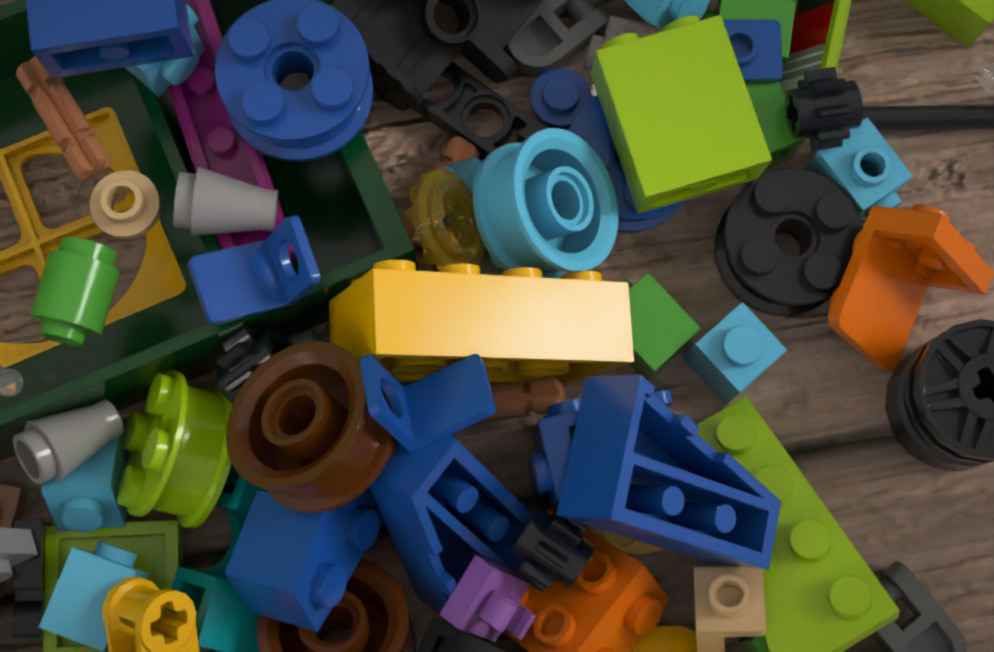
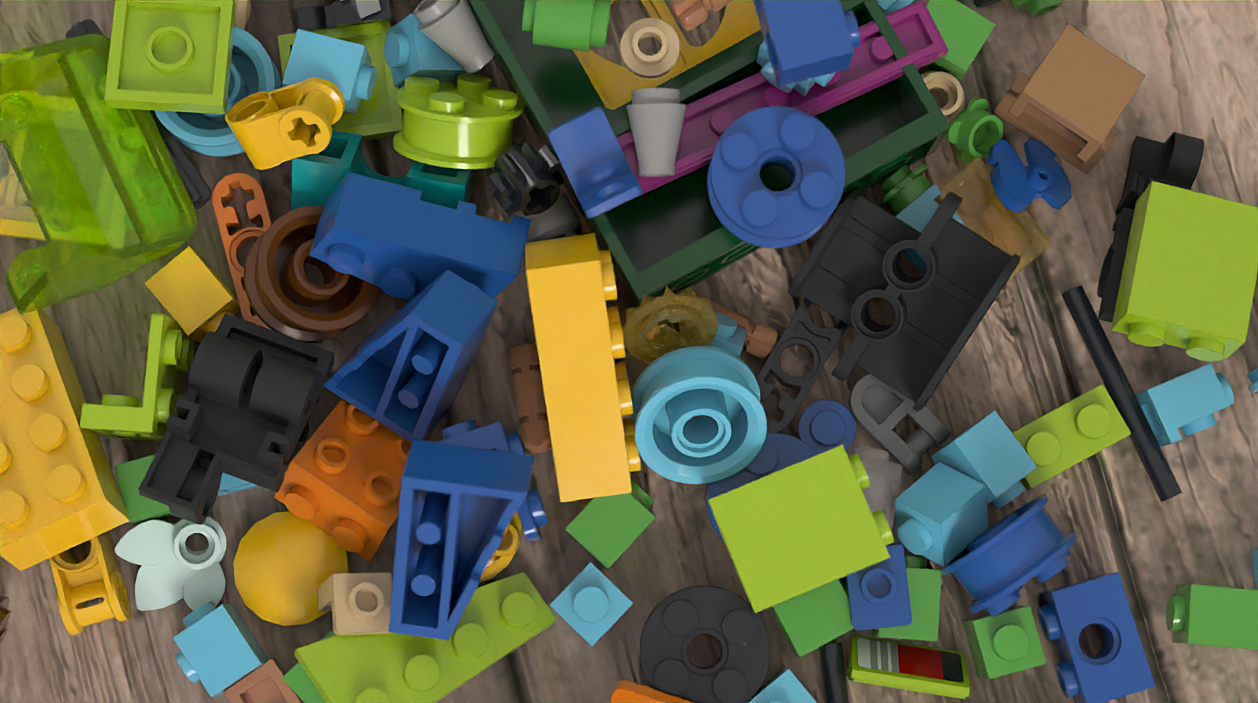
camera: 90 degrees right, 5 degrees up
(308, 429) = (467, 227): reddish brown wheel -> none
(431, 405) = (492, 321): blue bracket -> none
(489, 601) = (349, 398): medium lavender tile -> none
(551, 550) = (390, 443): black gear -> none
(823, 108) = (823, 668): black gear -> none

